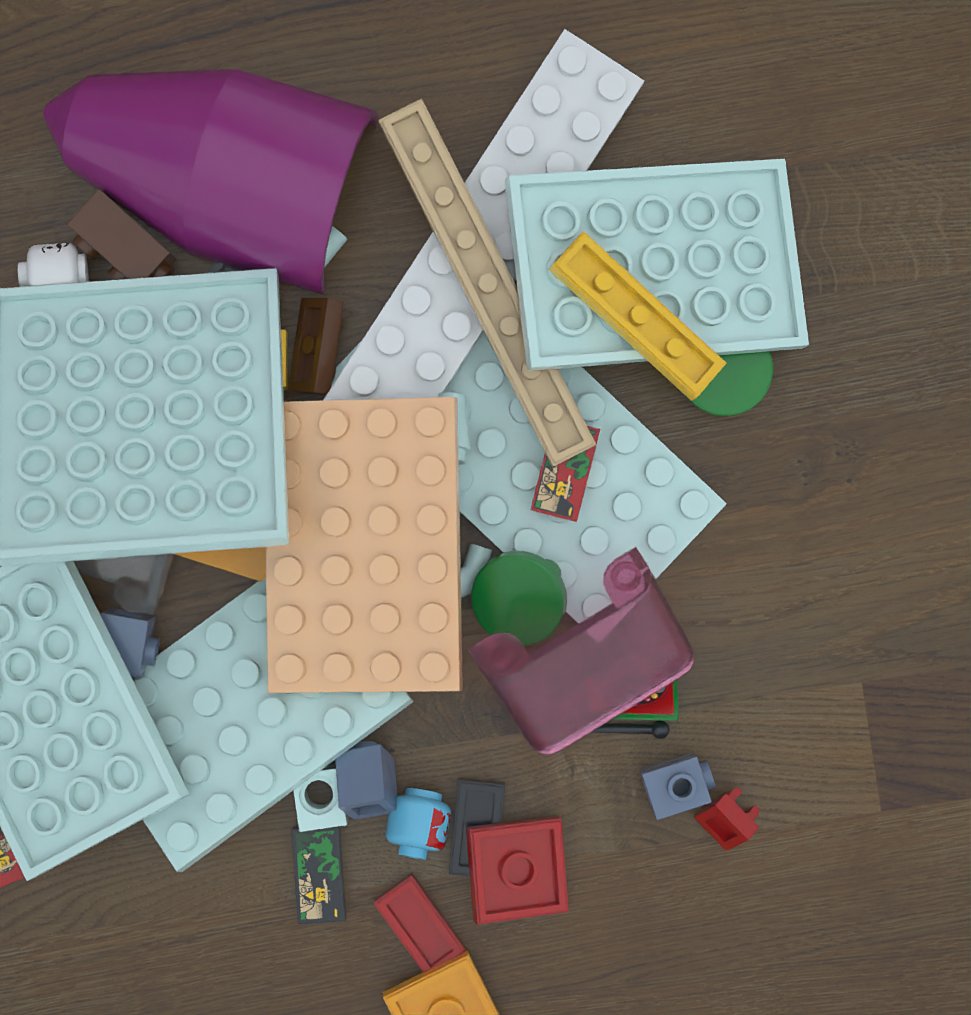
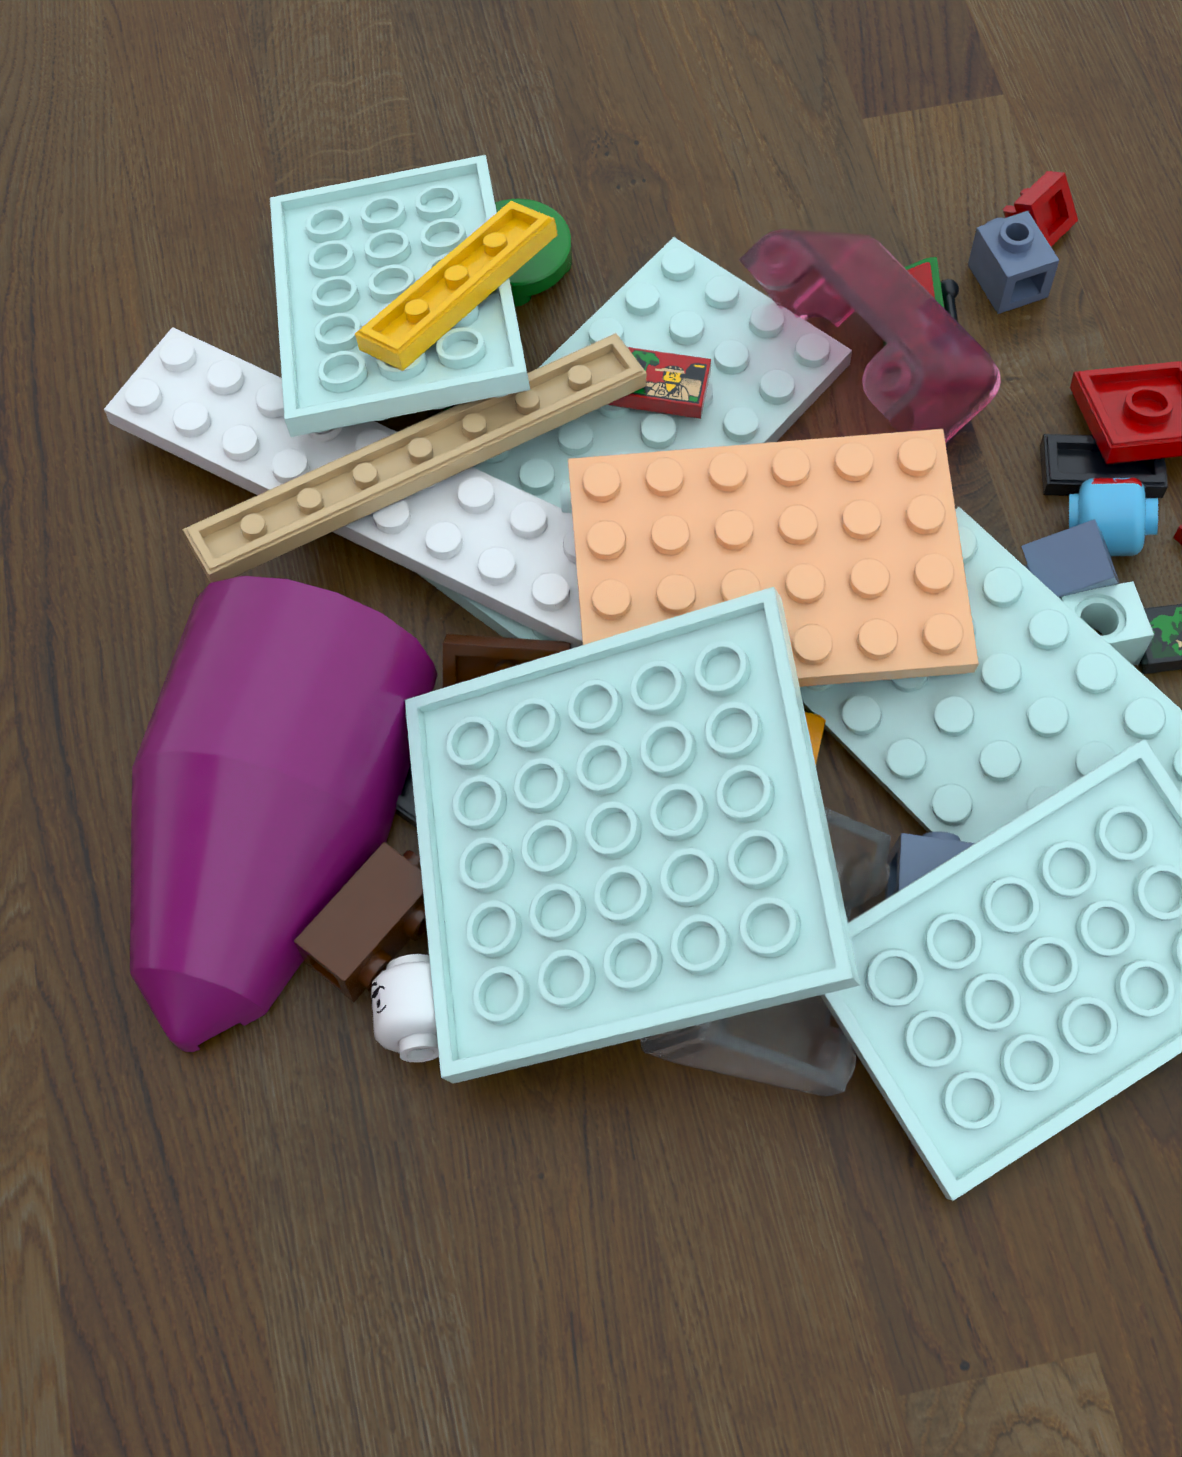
camera: 90 degrees left, 25 degrees down
(519, 596) = (810, 403): green tile -> none

